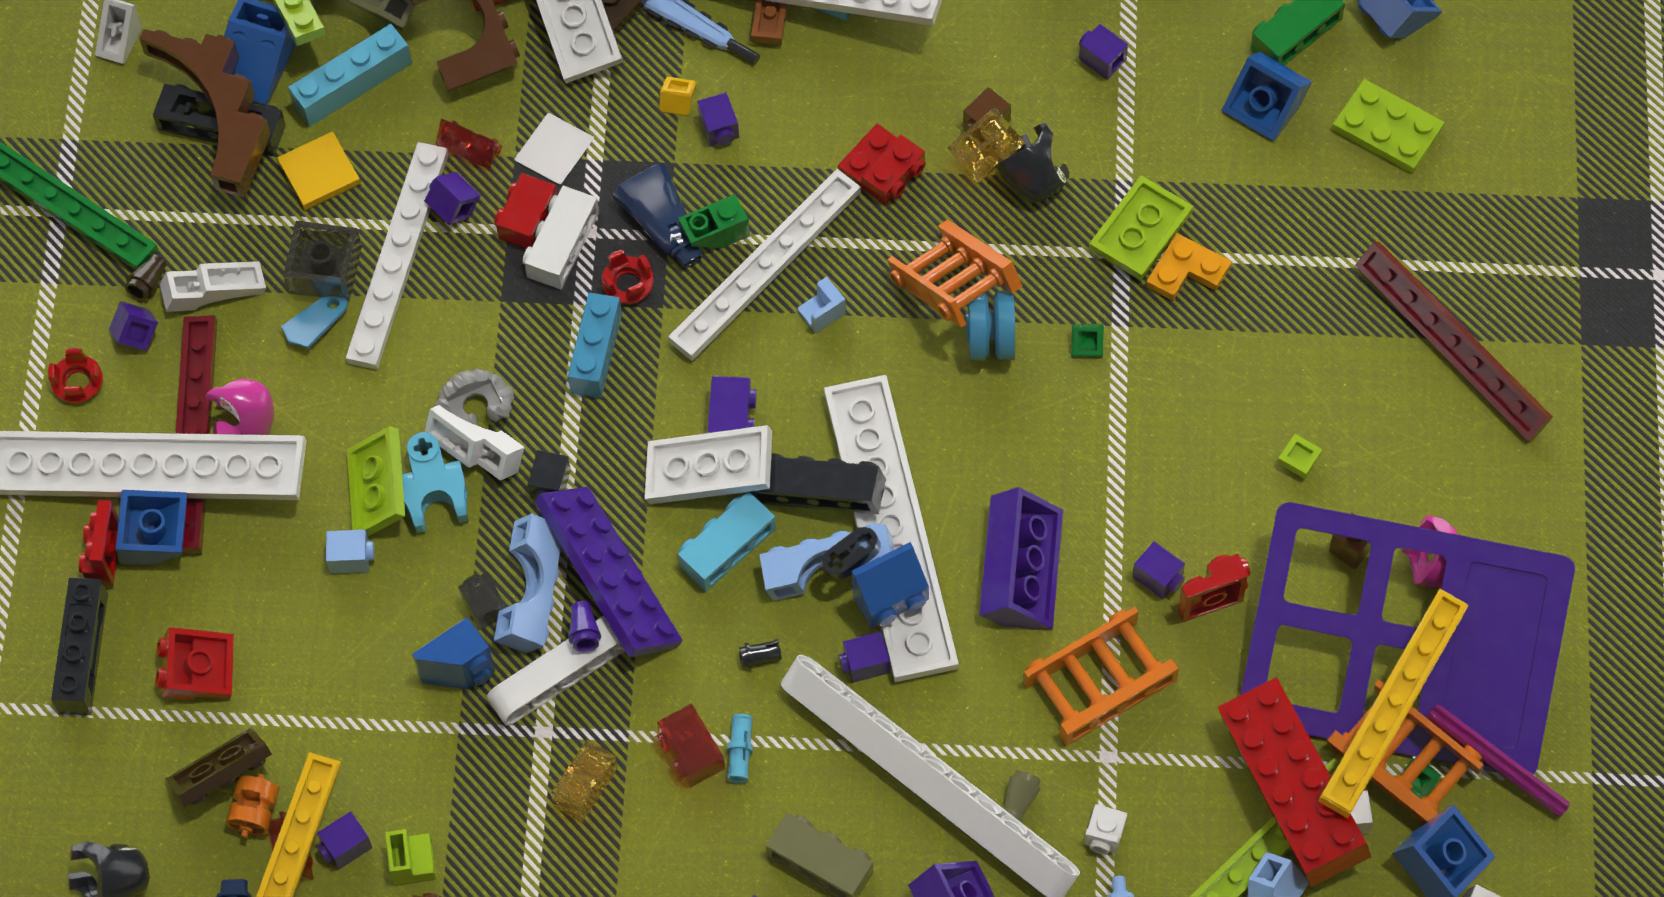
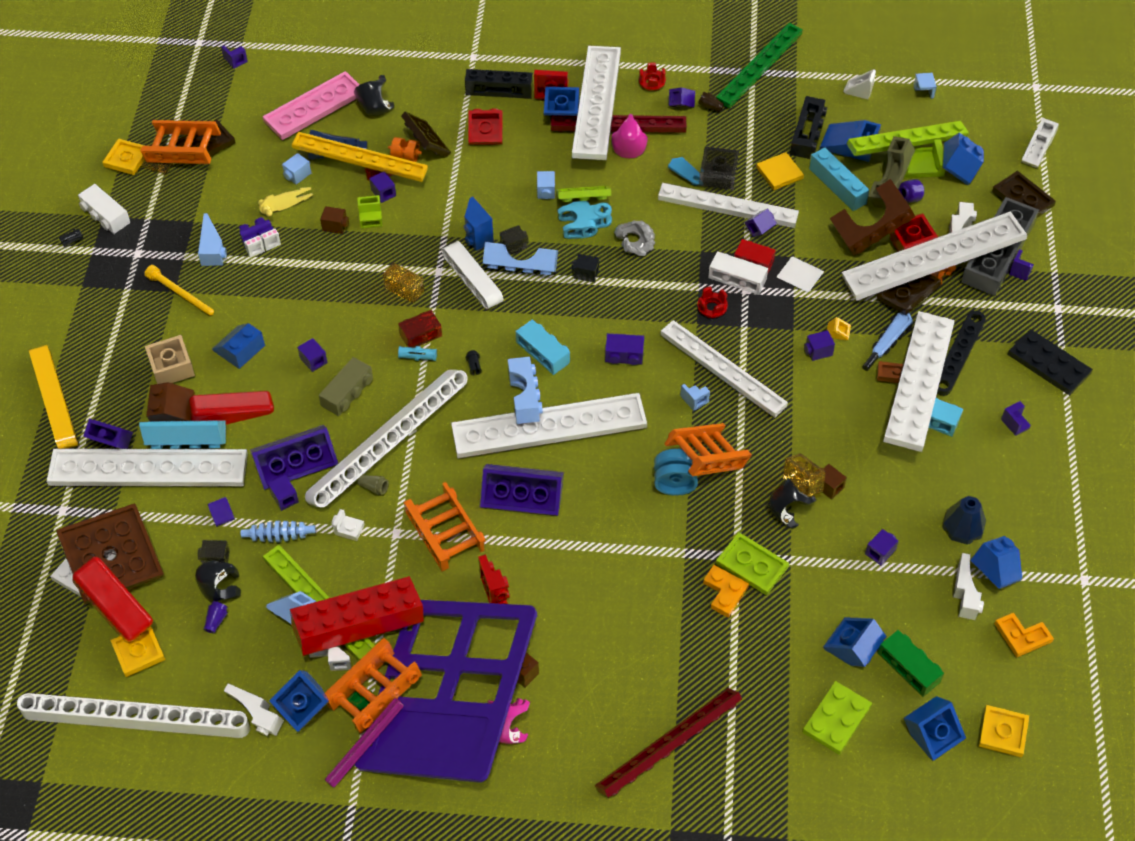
camera: 90 degrees right, 10 degrees down
(210, 67) = (791, 125): reddish brown arch -> none
(211, 284) = (705, 125): white slope -> none
(467, 144) = (795, 236): clear red hinge -> none
(474, 444) = (604, 236): white slope -> none
(583, 631) = (486, 274): dark purple cone -> none
(594, 345) = (667, 286): dark azure brick -> none
(608, 571) = (525, 291): dark purple plate -> none
(657, 206) = (759, 315): dark blue piece -> none
(708, 464) = (587, 334): white plate -> none
(716, 224) = (746, 342): green slope -> none
(824, 484) = (573, 385): black brick -> none
(851, 553) = (524, 388): black beam -> none
(865, 657) = (465, 408): dark purple brick -> none
(883, 163) = (794, 428): red plate -> none
(890, 586) = (501, 412): blue slope -> none
(1087, 340) = (673, 533): green slope -> none
(1159, 570) = (511, 560): dark purple brick -> none
(1299, 456) = (587, 644): lime plate -> none
(1393, 703) = (394, 663): yellow tile -> none

